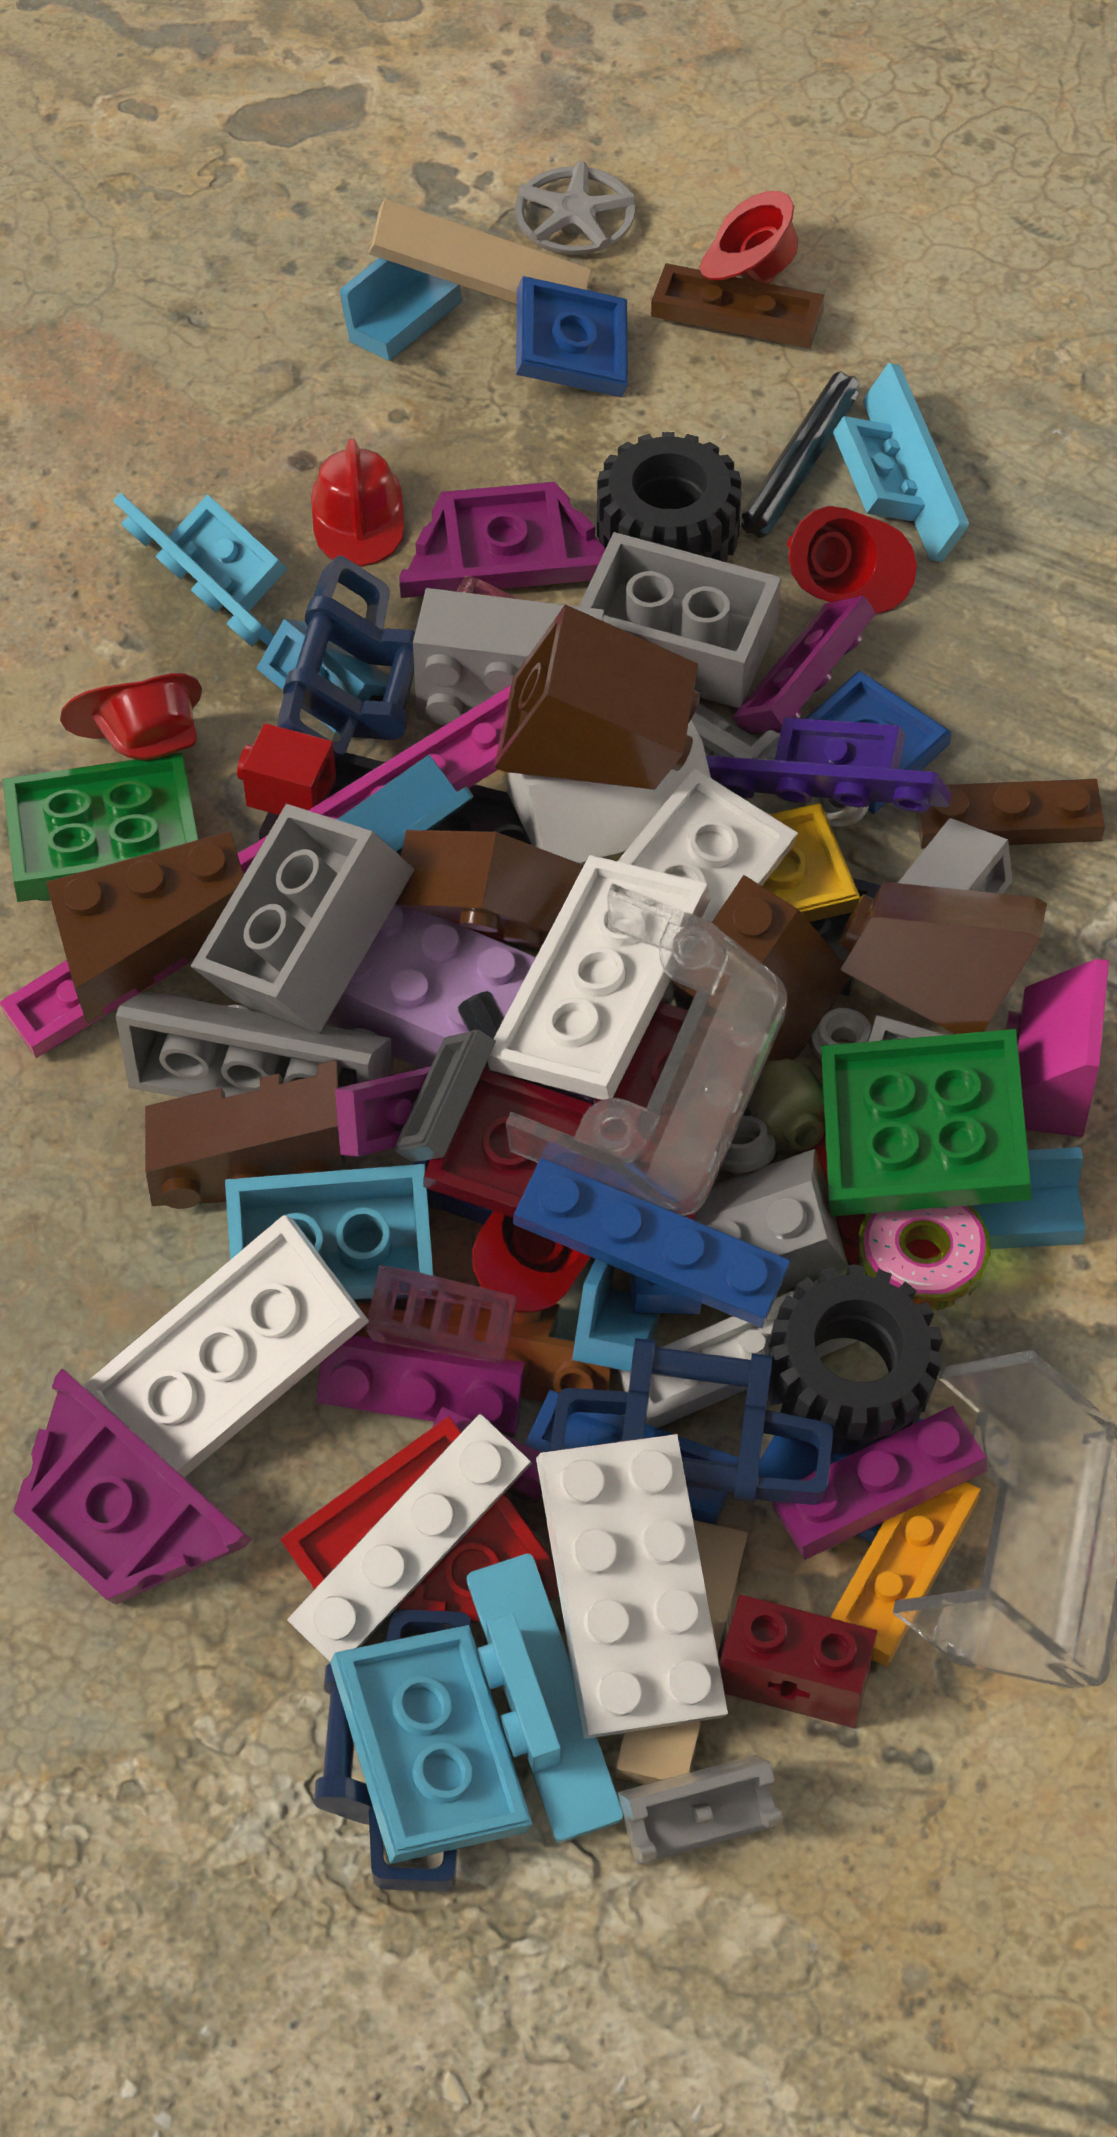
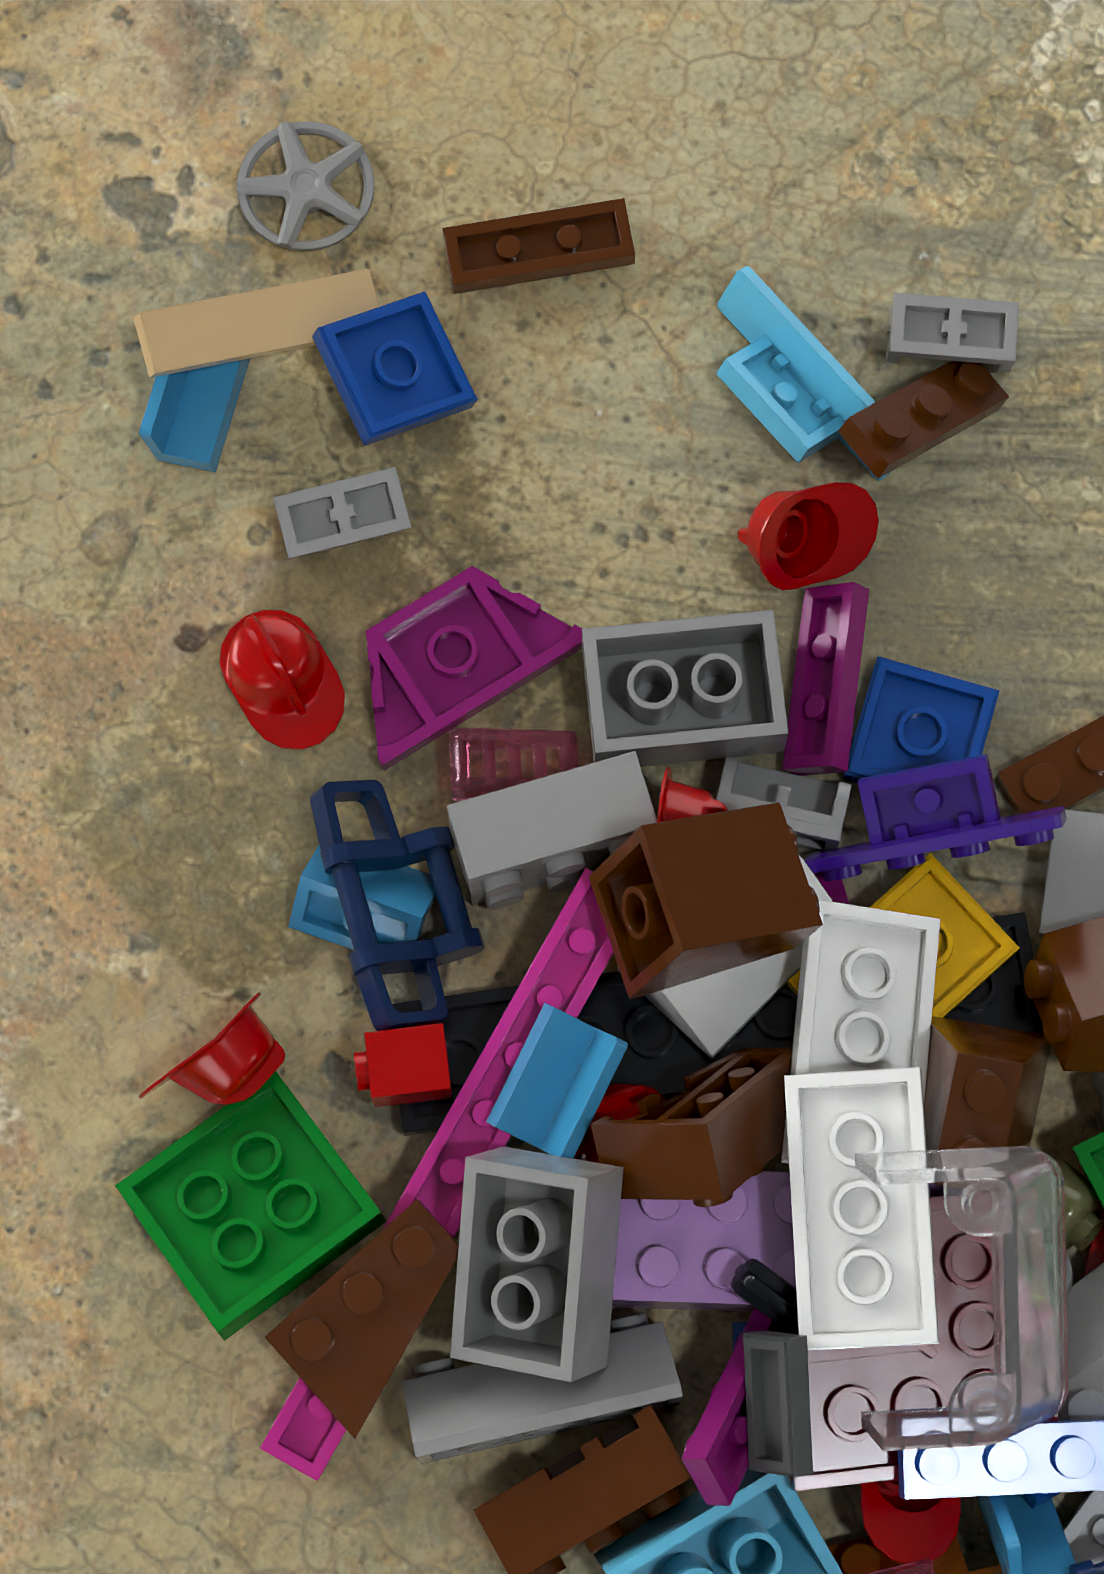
camera: 25 degrees left, 20 degrees up
(220, 555) = (181, 817): medium azure bracket -> none
(471, 404) = (342, 513): none -> light grey hinge
(671, 495) = (610, 503): black tyre -> none
(753, 240) = (518, 165): red piece -> none
(799, 455) = (691, 408): black axle -> none
(838, 1025) = (1085, 1098): white plate -> none
(990, 510) = (922, 415): none -> reddish brown plate
(1049, 466) = (953, 329): none -> light grey hinge

